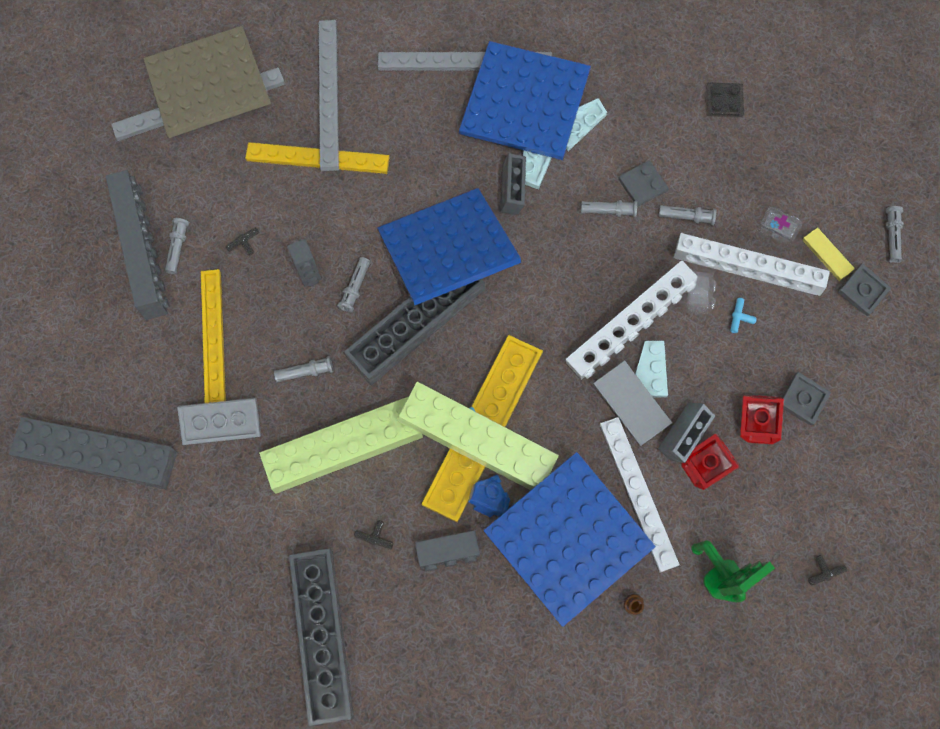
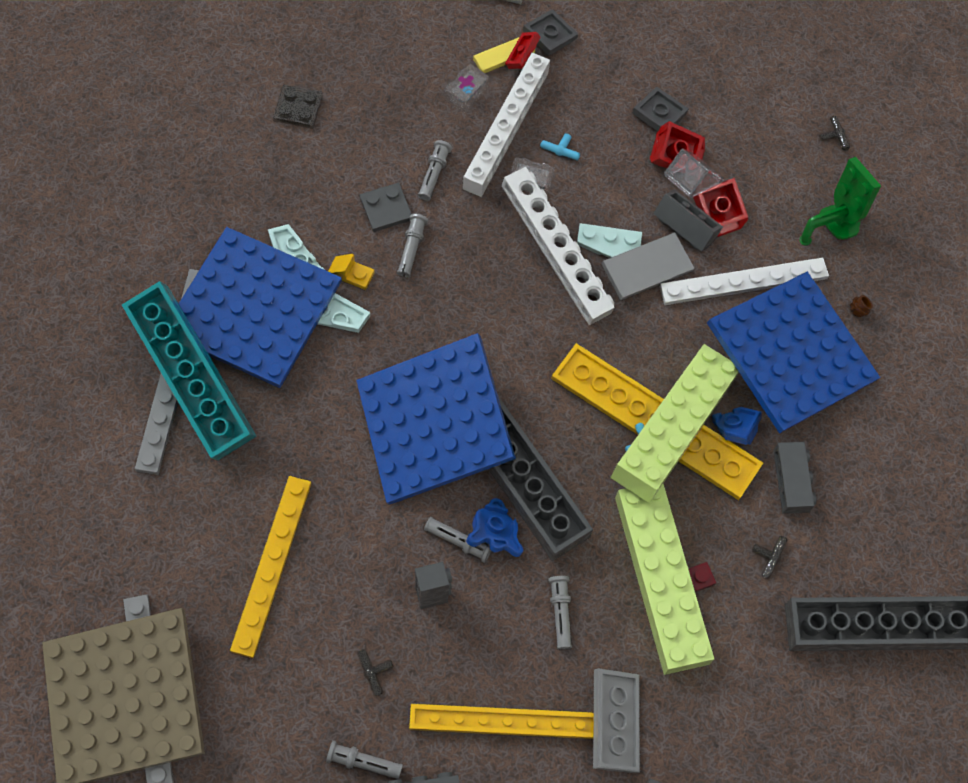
camera: 90 degrees left, 5 degrees down
(328, 96) = (183, 537): light grey plate -> none
(348, 478) = (701, 577): none -> dark red plate
(364, 309) = (495, 528): none -> blue tile
(455, 62) = (189, 371): none -> teal brick
(513, 184) = (364, 337): dark grey brick -> none
(575, 168) = (351, 272): none -> yellow slope
(733, 428) = (691, 174): none -> clear slope
(837, 266) = (522, 50): none -> red plate

